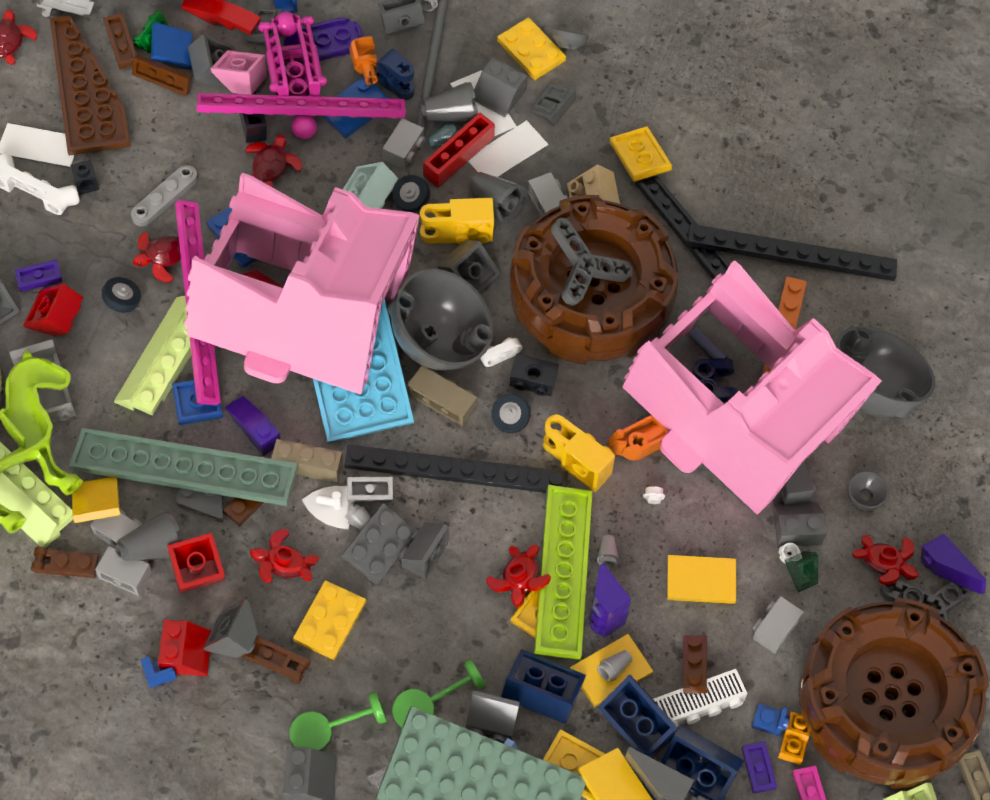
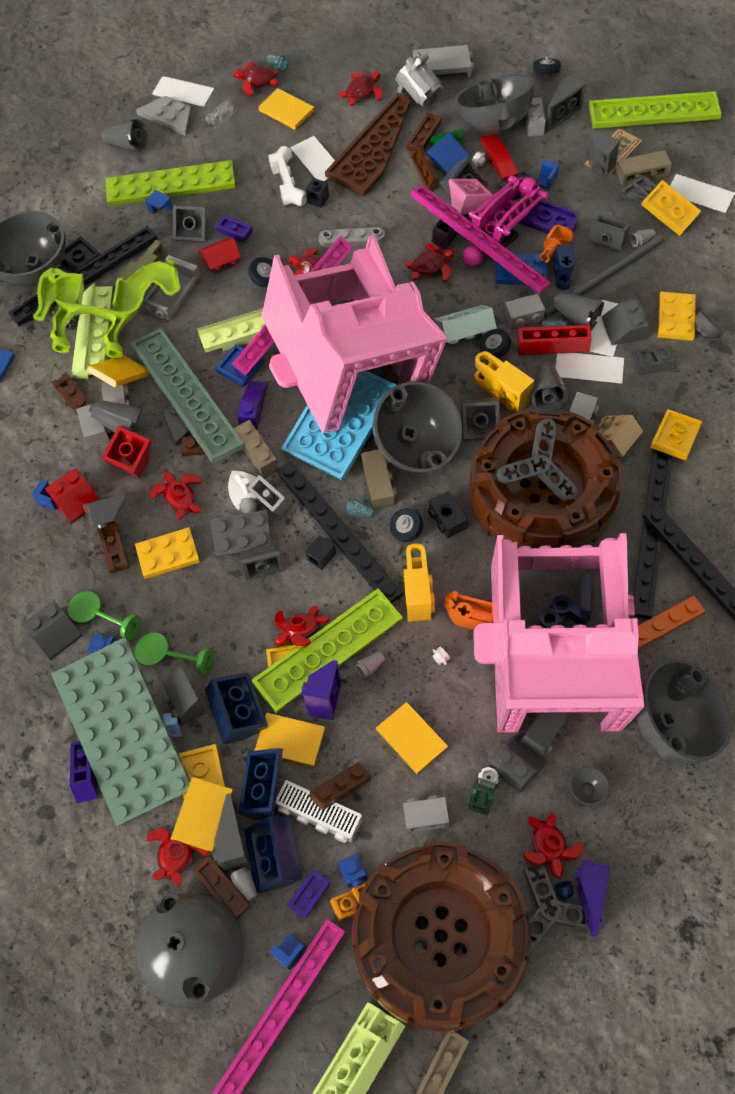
camera: 55 degrees right, 0 degrees up
(203, 28) = (479, 159): none -> white plate
(369, 747) = (99, 642): none -> blue bracket
(453, 436) = (358, 509): none -> clear light blue cone
(465, 498) = (321, 552): none -> black brick
(501, 352) = (442, 483): white plate -> none
(613, 666) = (290, 737): light grey cone -> none
(927, 582) = (564, 889): none -> dark blue hinge

